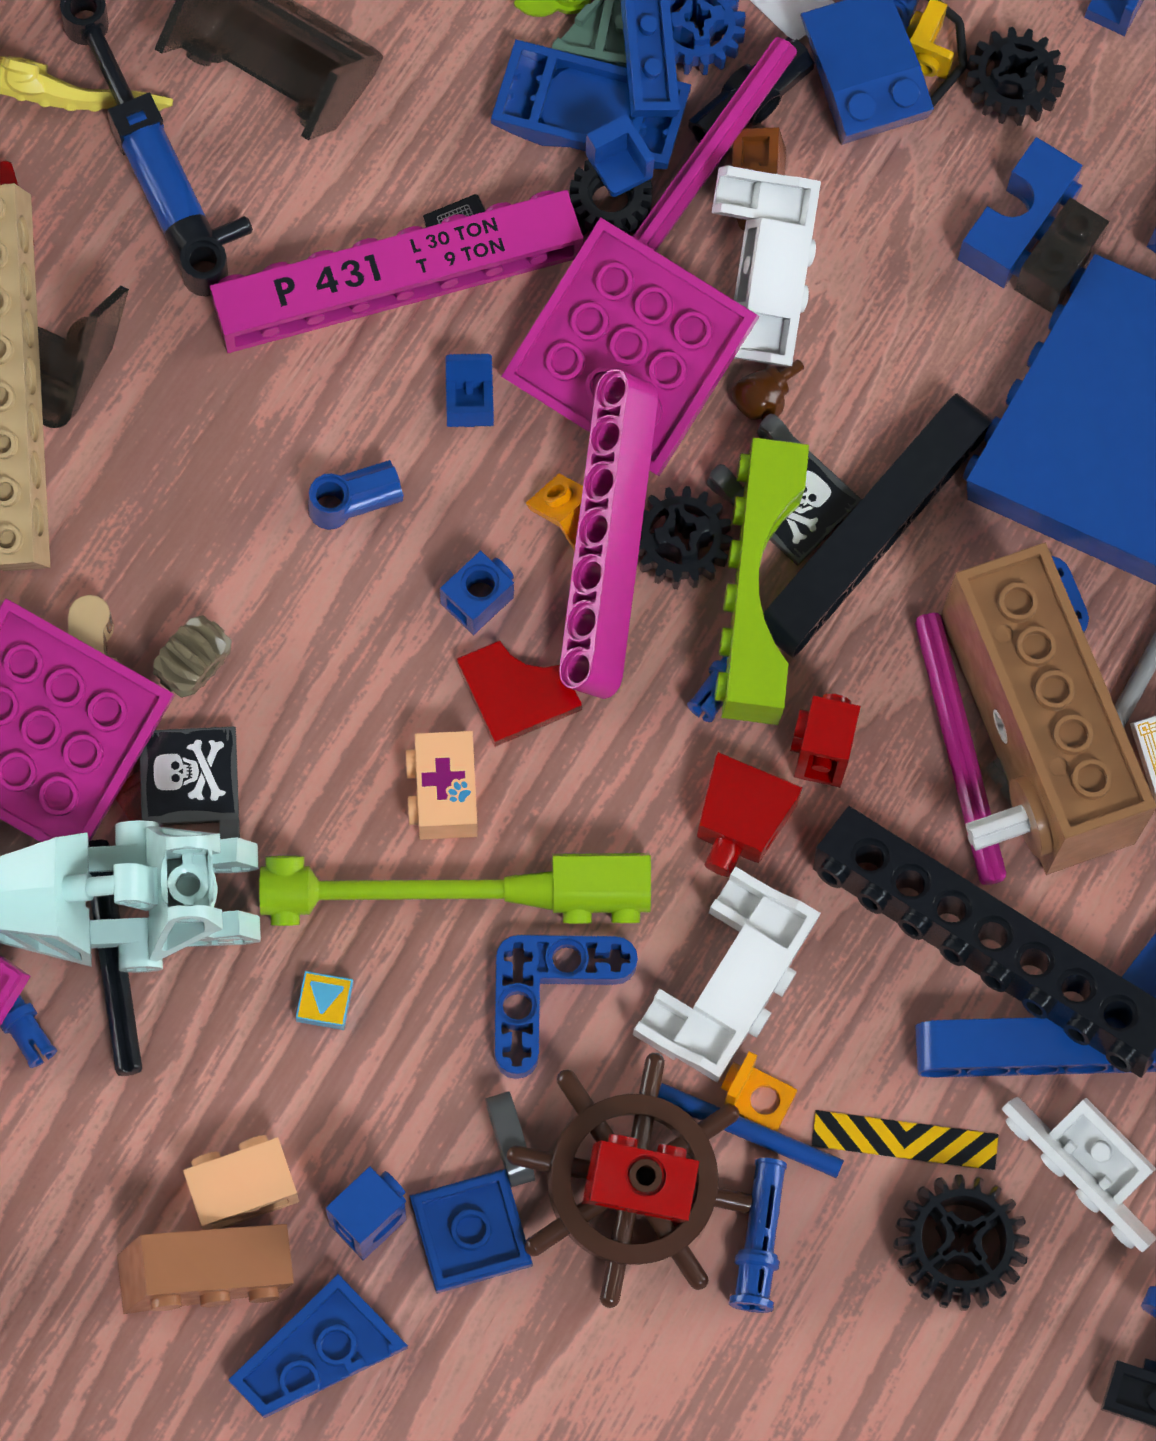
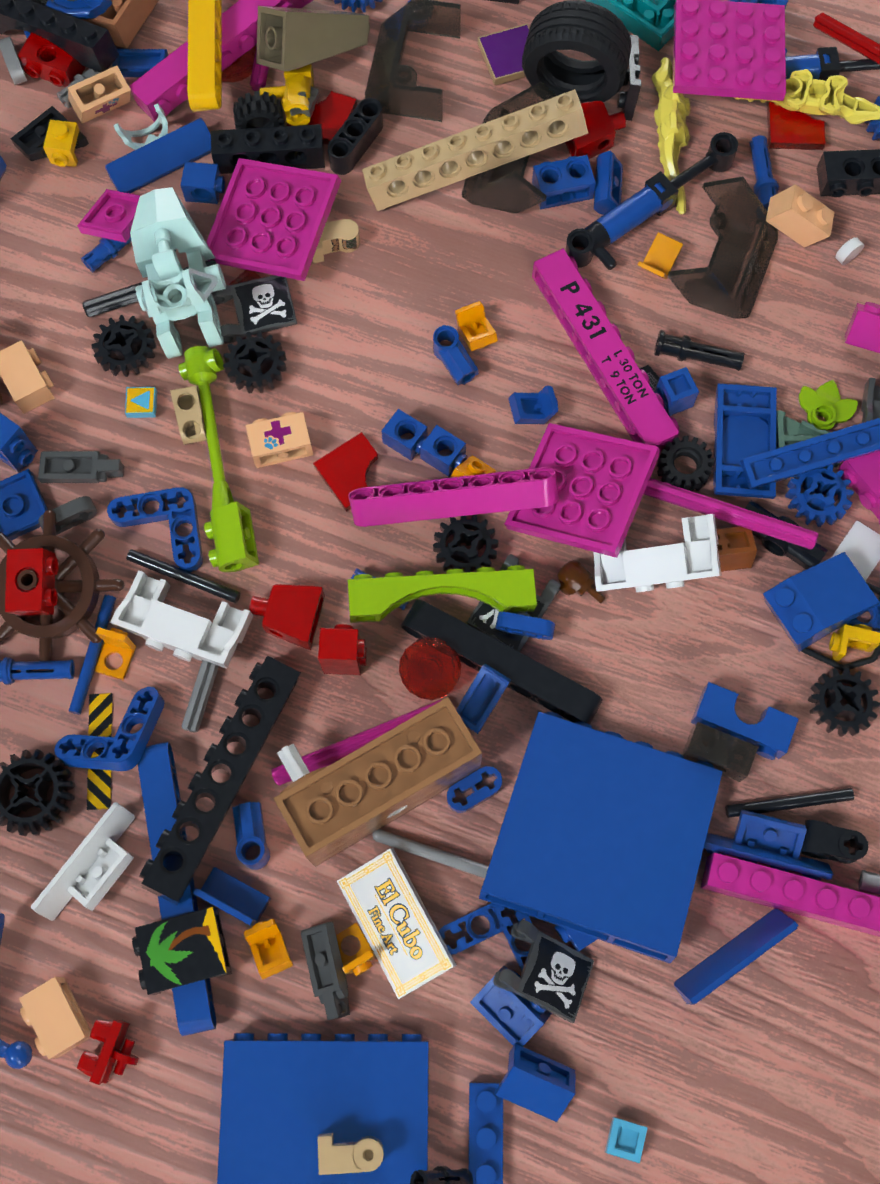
camera: 85 degrees right, 0 degrees up
(80, 264) = (564, 186): none -> blue brick
(93, 199) = (608, 182): none -> blue brick
(192, 656) = (331, 286): dark tan gear -> none
(237, 1006) = (124, 346): none -> black gear
(249, 151) = (661, 255): none -> light orange bracket
(279, 803) = (240, 361): none -> black gear
(312, 451) = (474, 326): none -> light orange bracket
(372, 920) = (189, 414): none -> tan leg
(417, 150) = (684, 348): none -> black pin
(425, 1116) = (78, 467): none -> dark grey hinge
(494, 176) = (677, 391): none -> blue brick
(519, 517) = (437, 441): none -> blue brick
(619, 155) = (710, 456): blue panel -> none
(644, 973) = (183, 576): none -> black bar
(829, 474) = (525, 625): none -> blue beam
(849, 973) = (200, 696): none -> light grey axle
(870, 622) = (430, 668): none -> clear red tile
(915, 1101) = (124, 749): none -> blue beam
(924, 555) = (482, 697): none -> blue tile
(1074, 922) = (249, 833): none -> blue piece
(1142, 185) = (791, 802): none -> black bar

